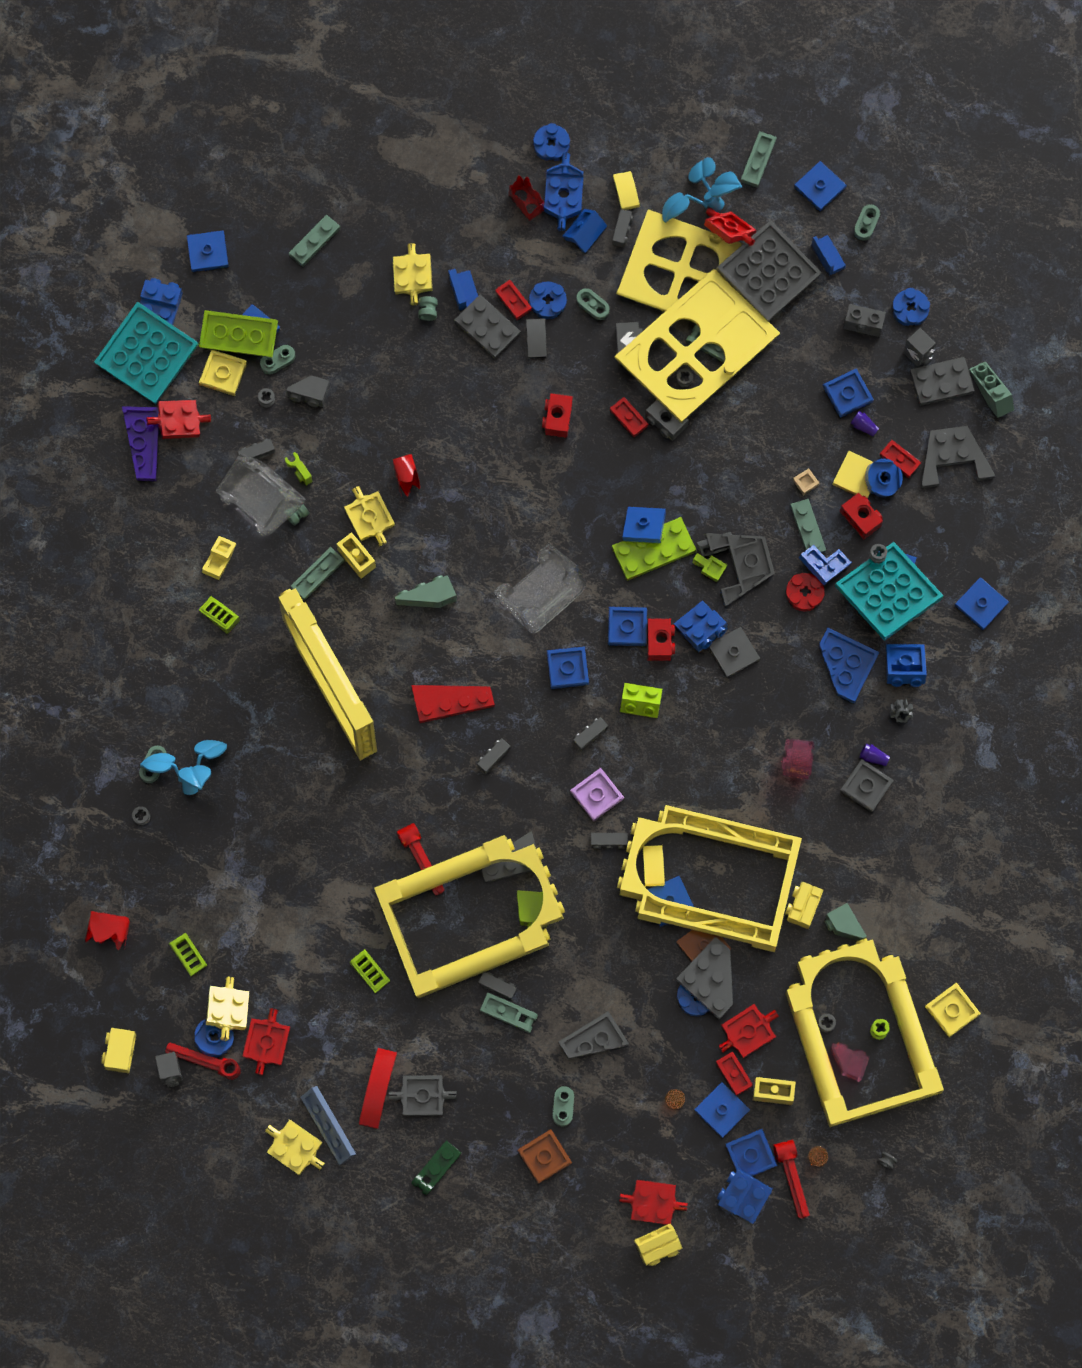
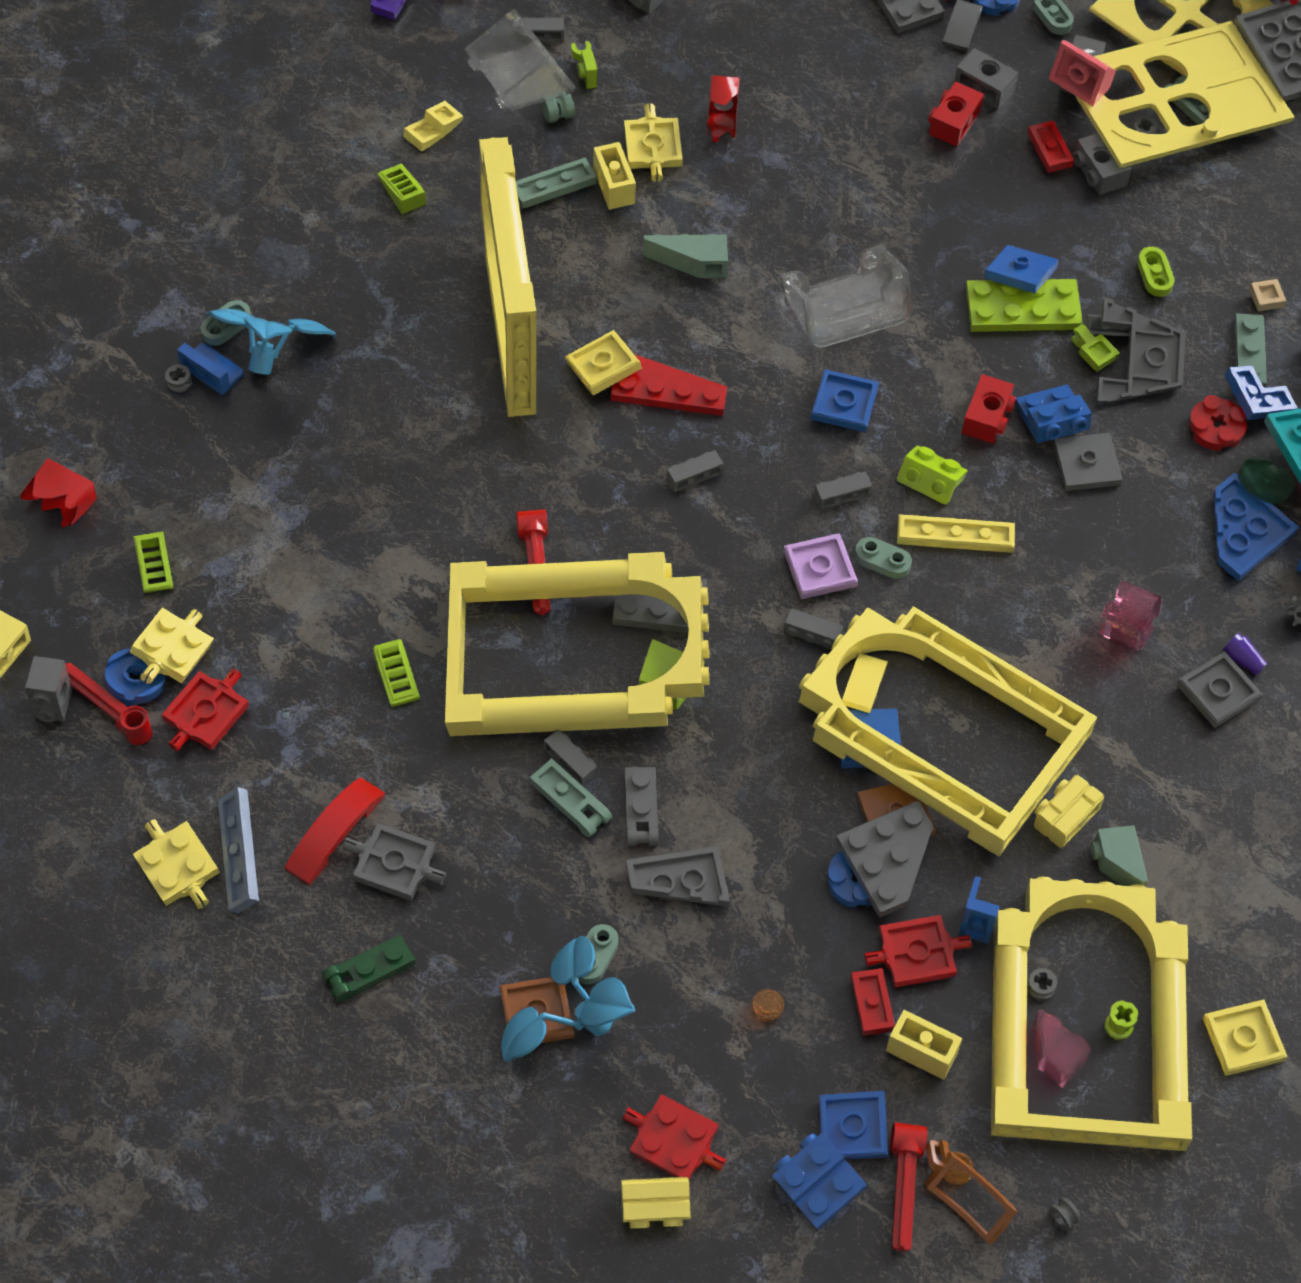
camera: 20 degrees right, 15 degrees down
(157, 799) = (210, 367): none -> blue panel
(406, 700) = (603, 362): none -> light yellow tile
(552, 1000) = (641, 805): none -> dark grey plate
(575, 385) = (987, 76): none -> dark grey brick
(586, 1148) = (606, 1003): none -> dark azure plant
(627, 626) = (949, 380): blue plate -> none
(632, 774) = (882, 558): none -> sand green plate
(635, 364) = (1081, 73): none -> coral slope
(670, 736) = (956, 533): none -> light yellow tile
(721, 1109) = (833, 1047): blue plate -> none
(730, 491) = (1156, 277): none -> lime plate
(775, 1001) = (978, 916): none -> blue panel
(810, 1162) = (941, 1168): none -> dark orange sword
(848, 625) = (1265, 480): none -> clear green tile

